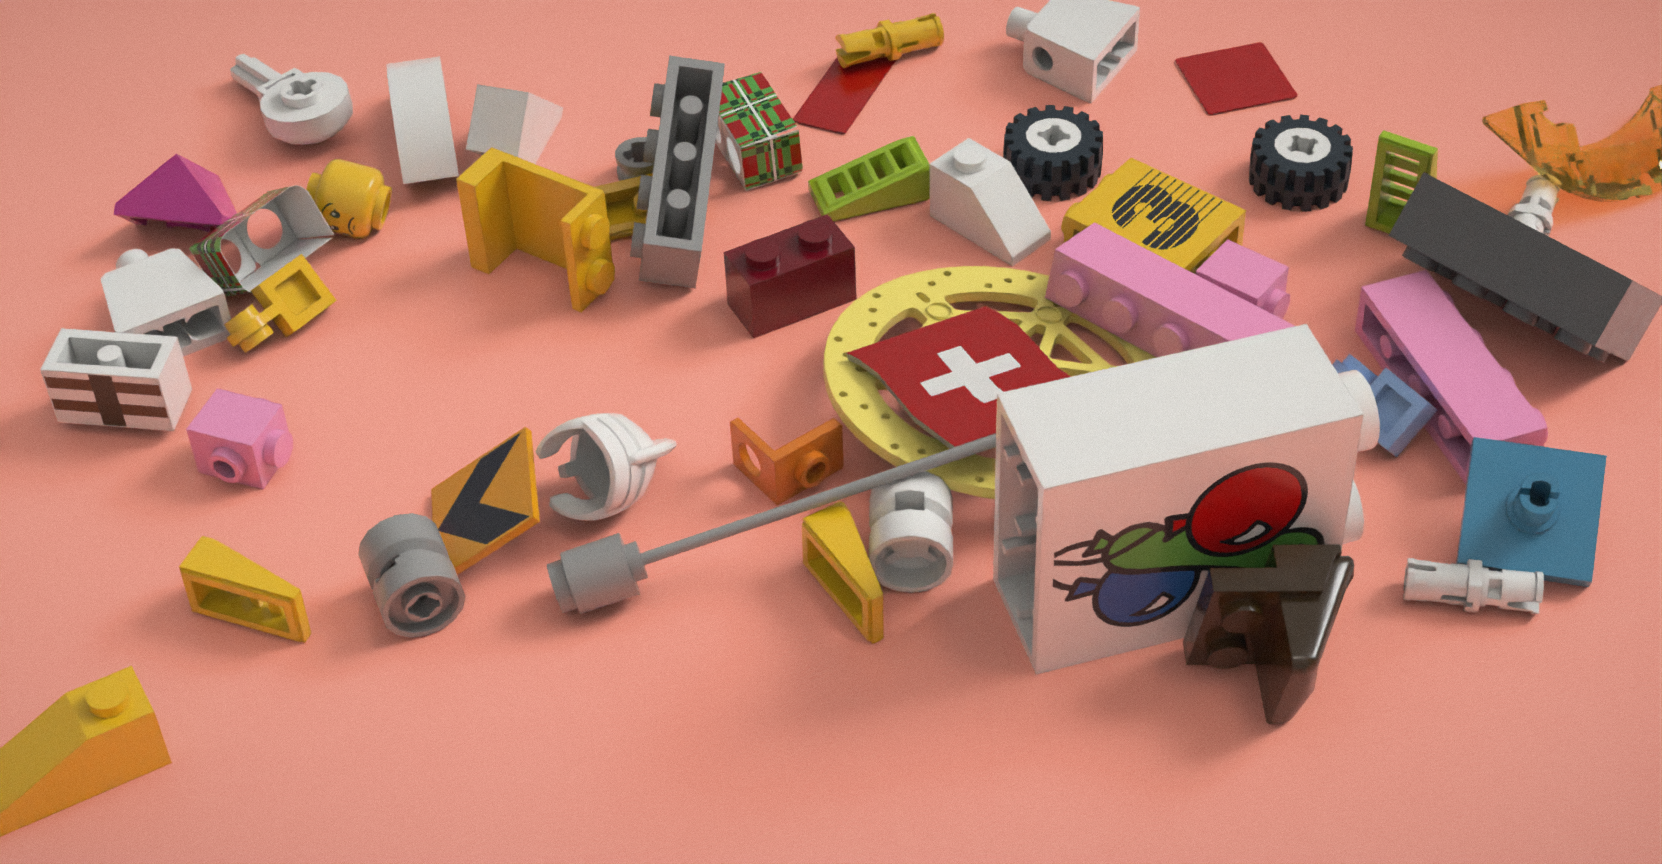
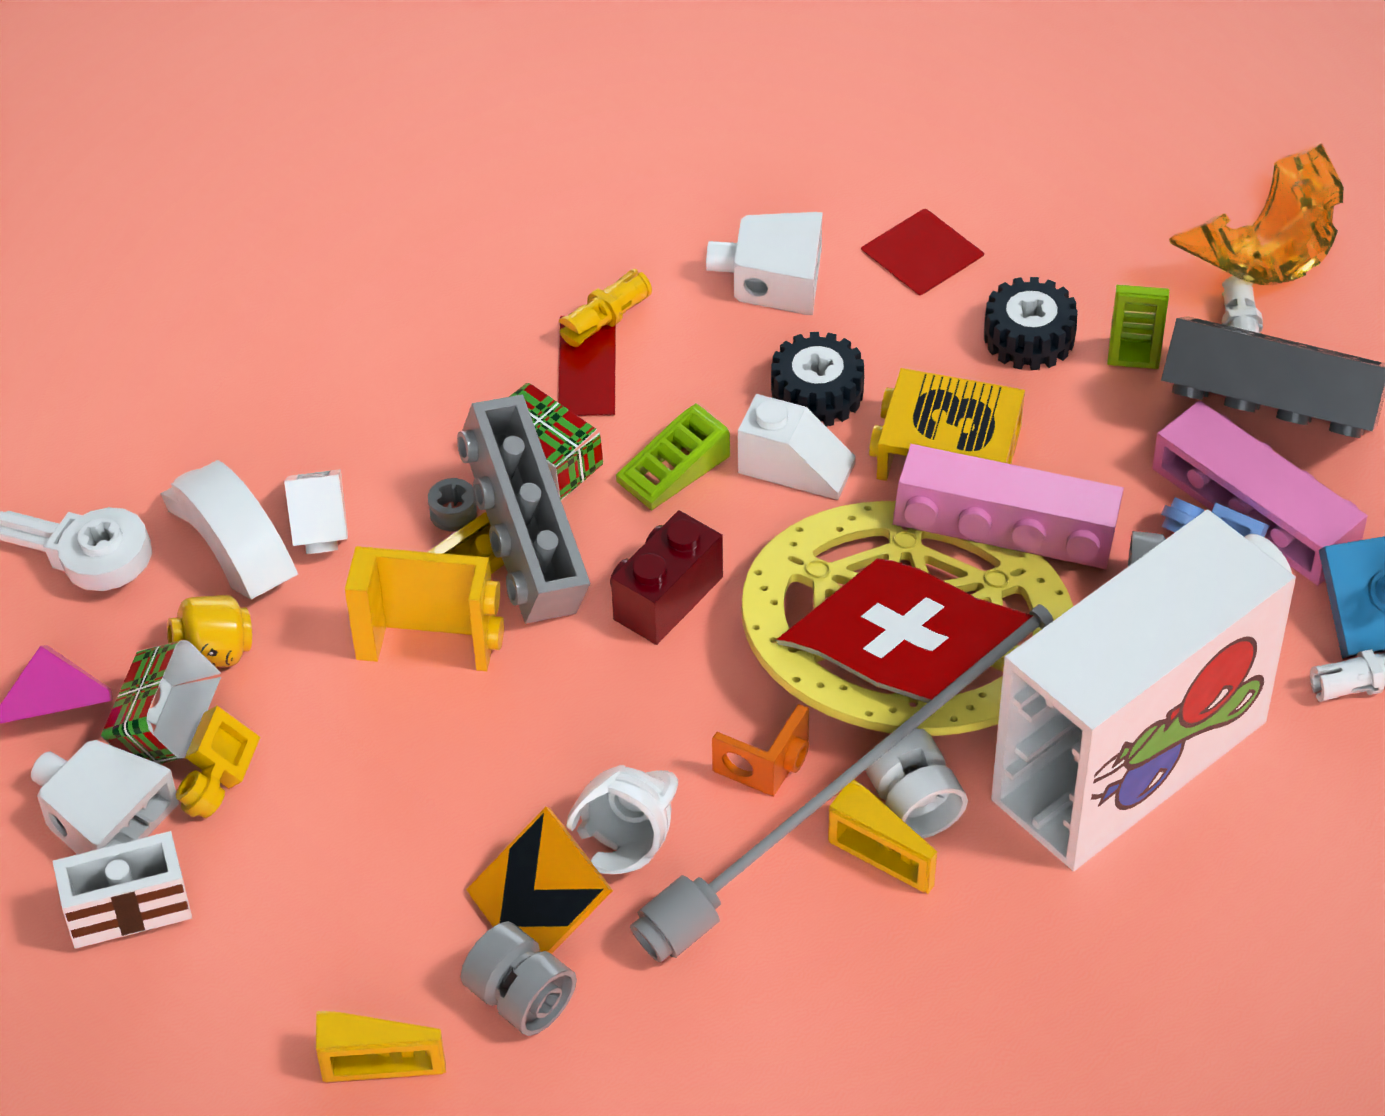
camera: 25 degrees left, 5 degrees up
(240, 438) = (272, 904): bright pink brick -> none
(1248, 277) = (1056, 451): bright pink brick -> none
(1272, 620) = (1260, 761): dark brown piece -> none

